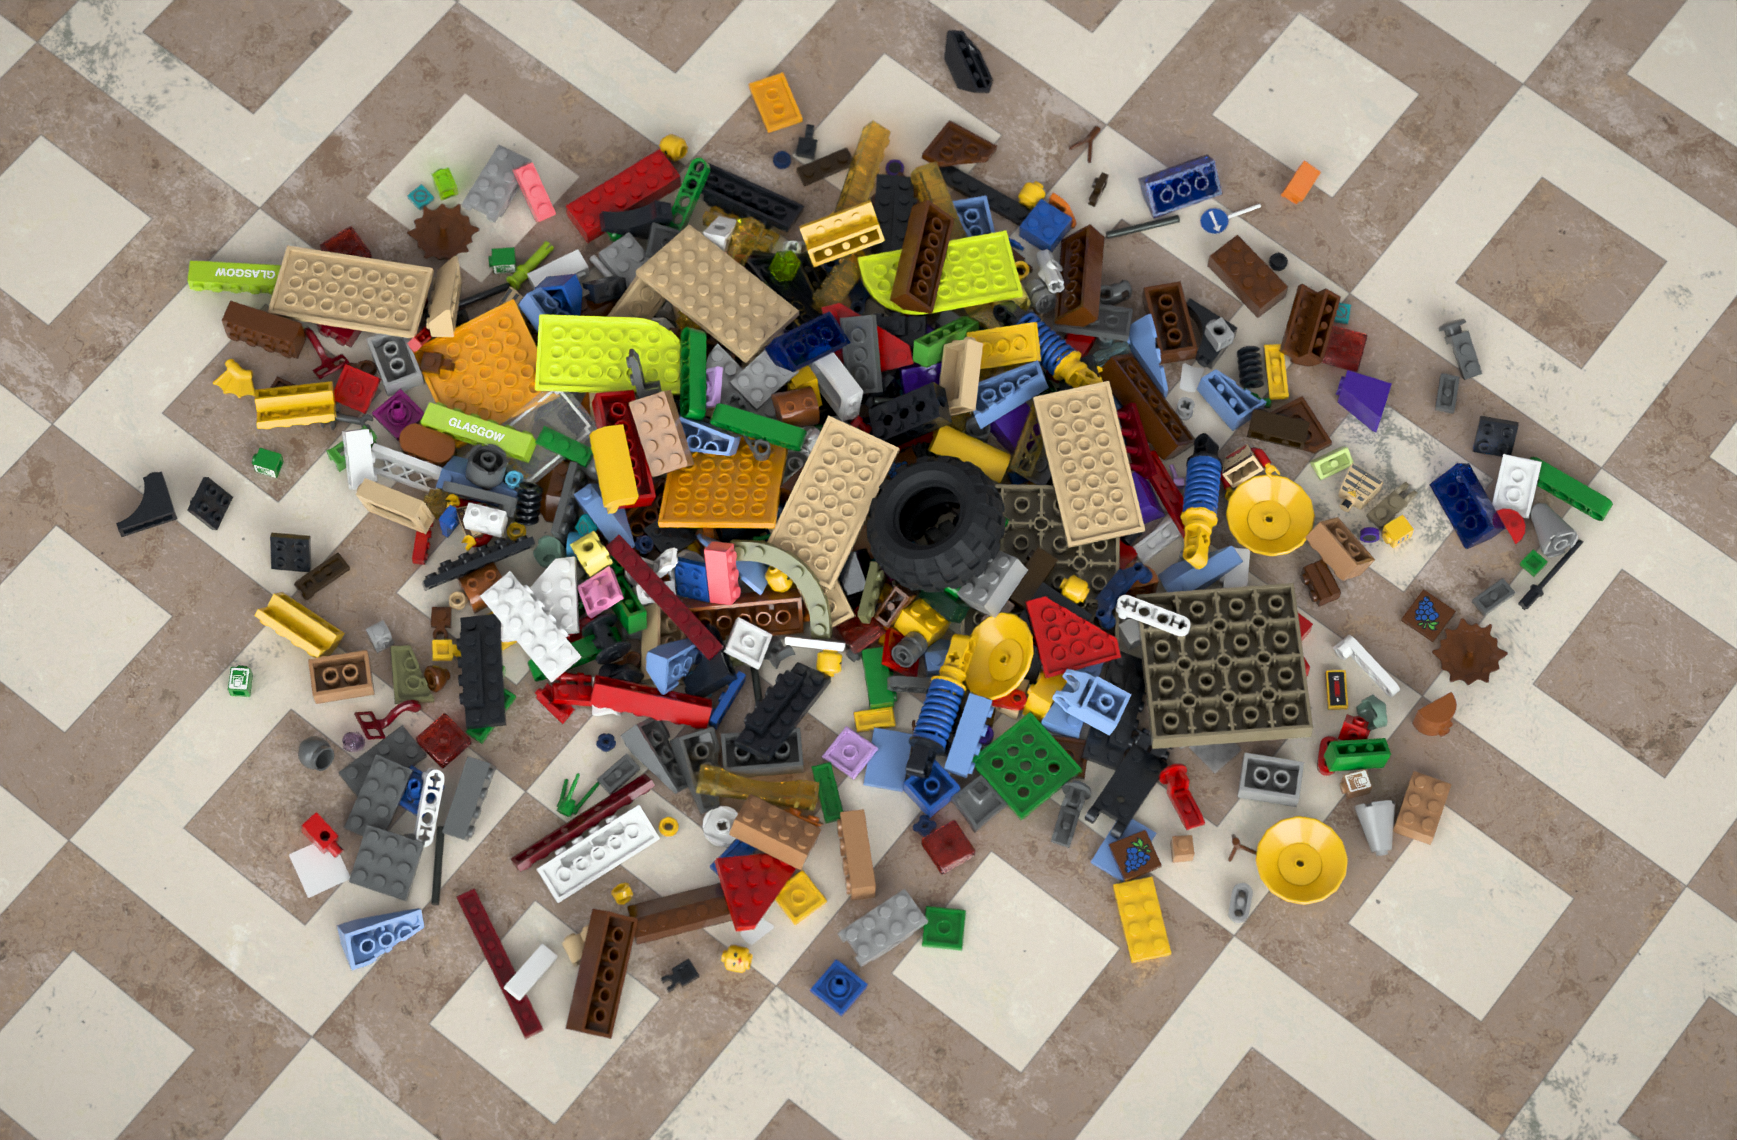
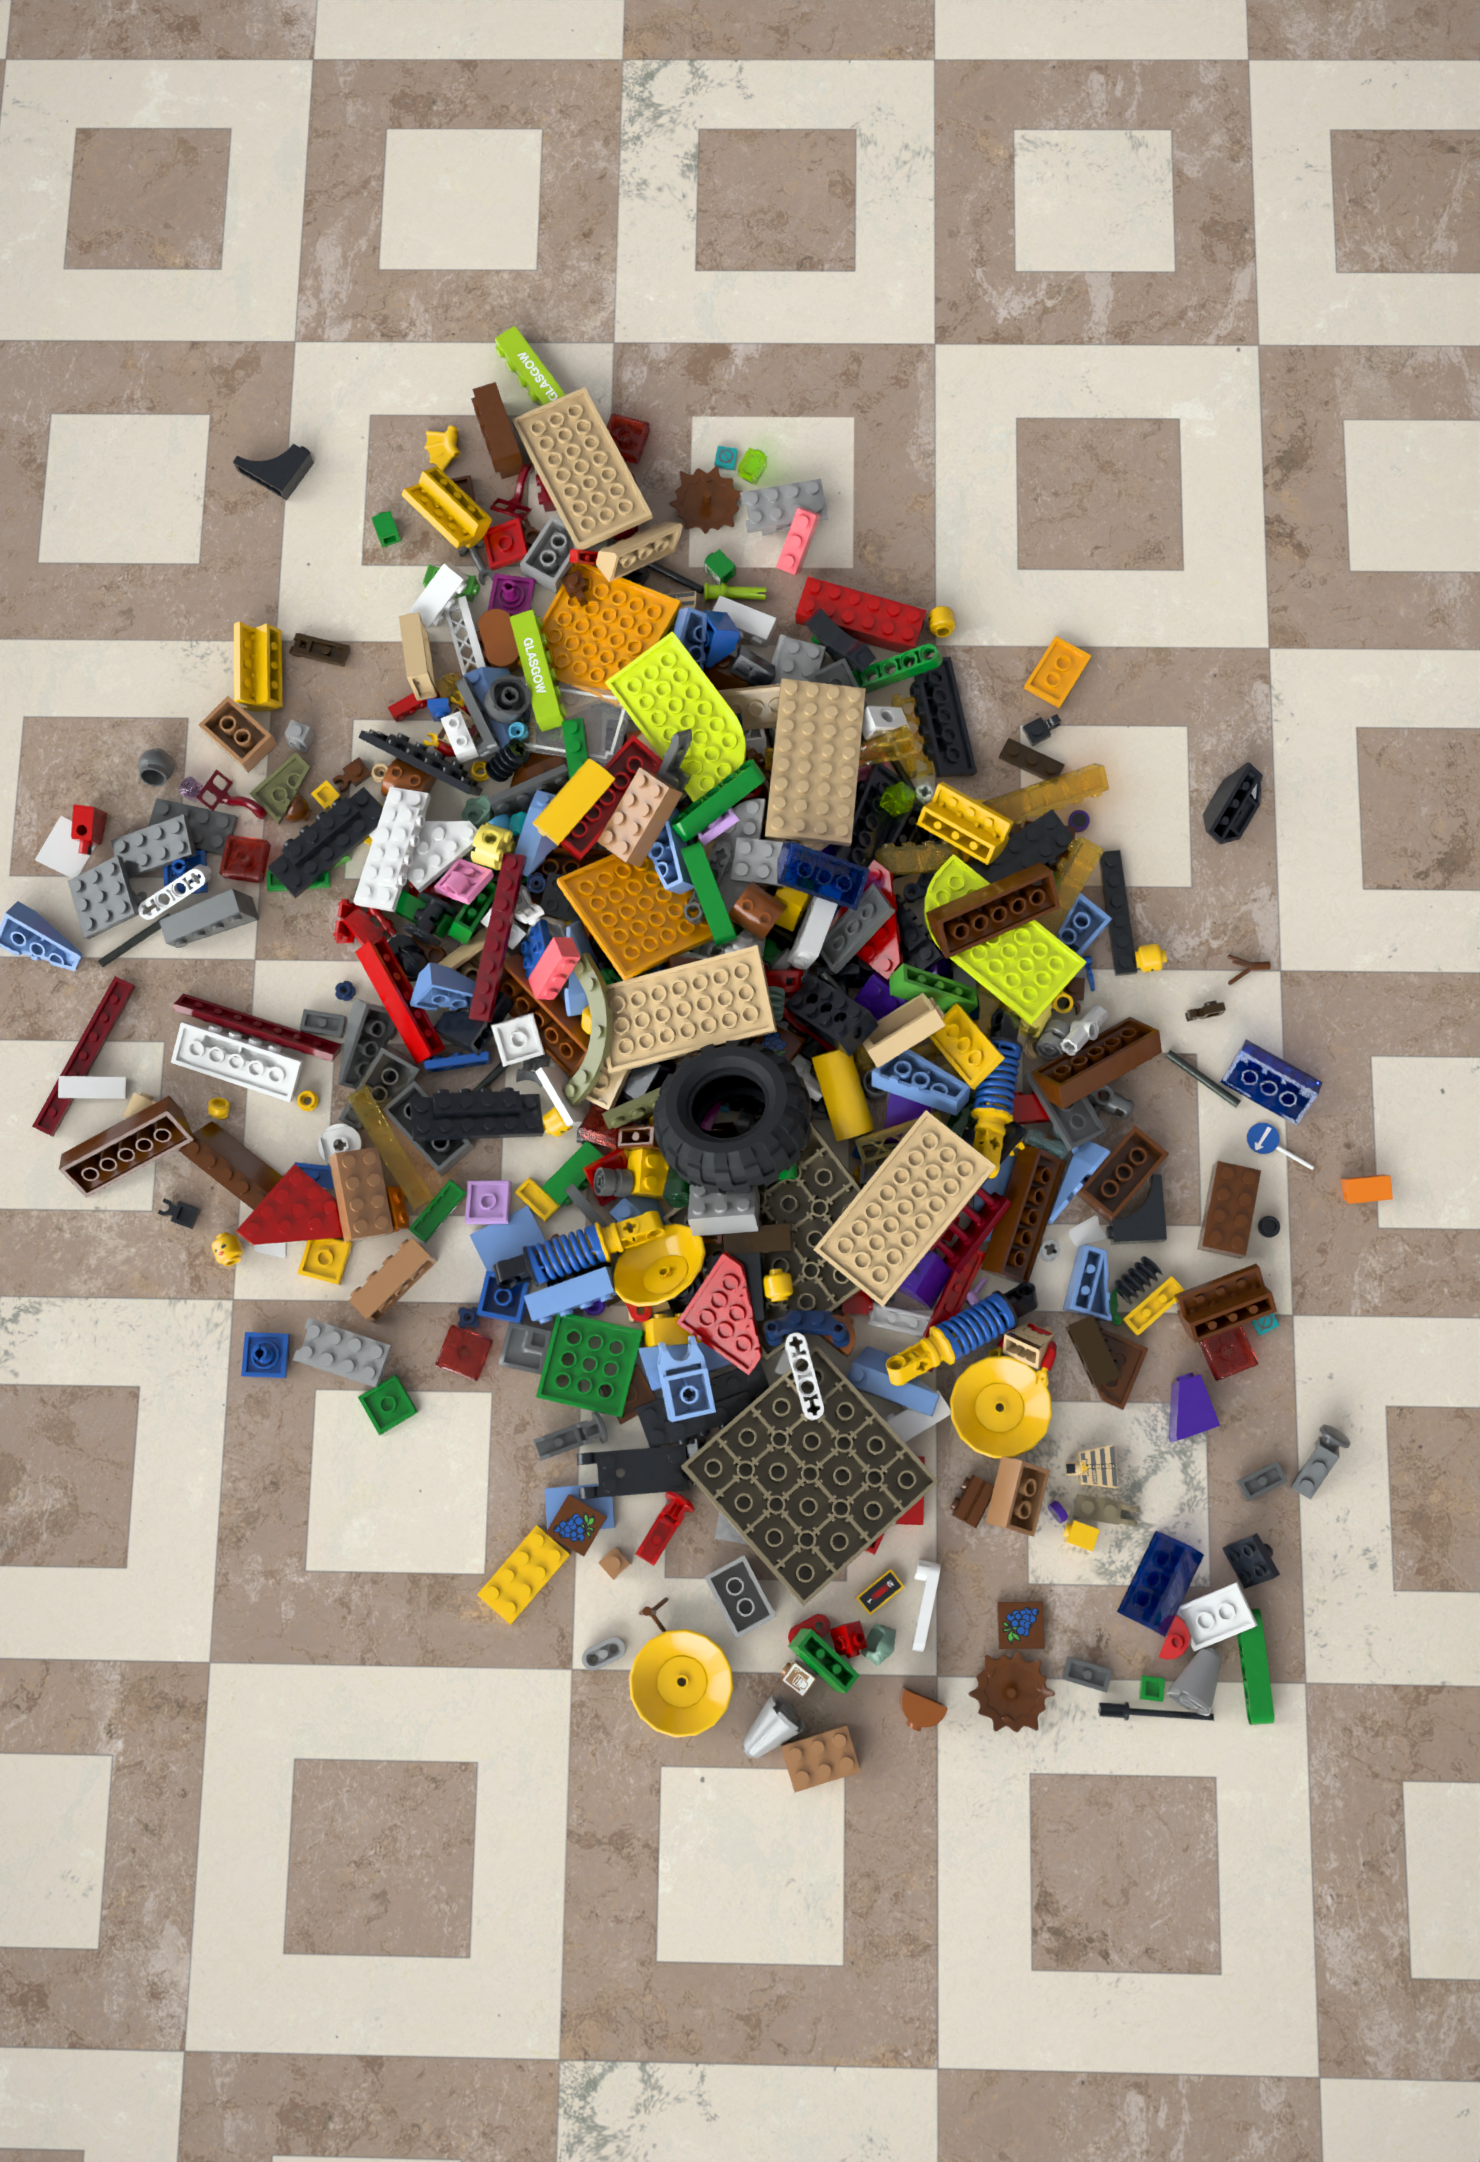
camera: 60 degrees right, 10 degrees up
(210, 503) = (311, 512): black plate -> none
(240, 681) = (177, 659): green brick -> none
(290, 552) = (317, 608): black plate -> none
(566, 805) = (264, 1002): green plant -> none
(782, 160) = (1006, 720): dark blue plate -> none
(958, 146) = (1143, 857): reddish brown plate -> none
(1045, 226) = (1128, 993): blue brick -> none
(1063, 206) = (1156, 1003): orange slope -> none
(1222, 340) = (1137, 1234): light grey brick -> none
(1332, 462) = (1105, 1423): yellowish green slope -> none

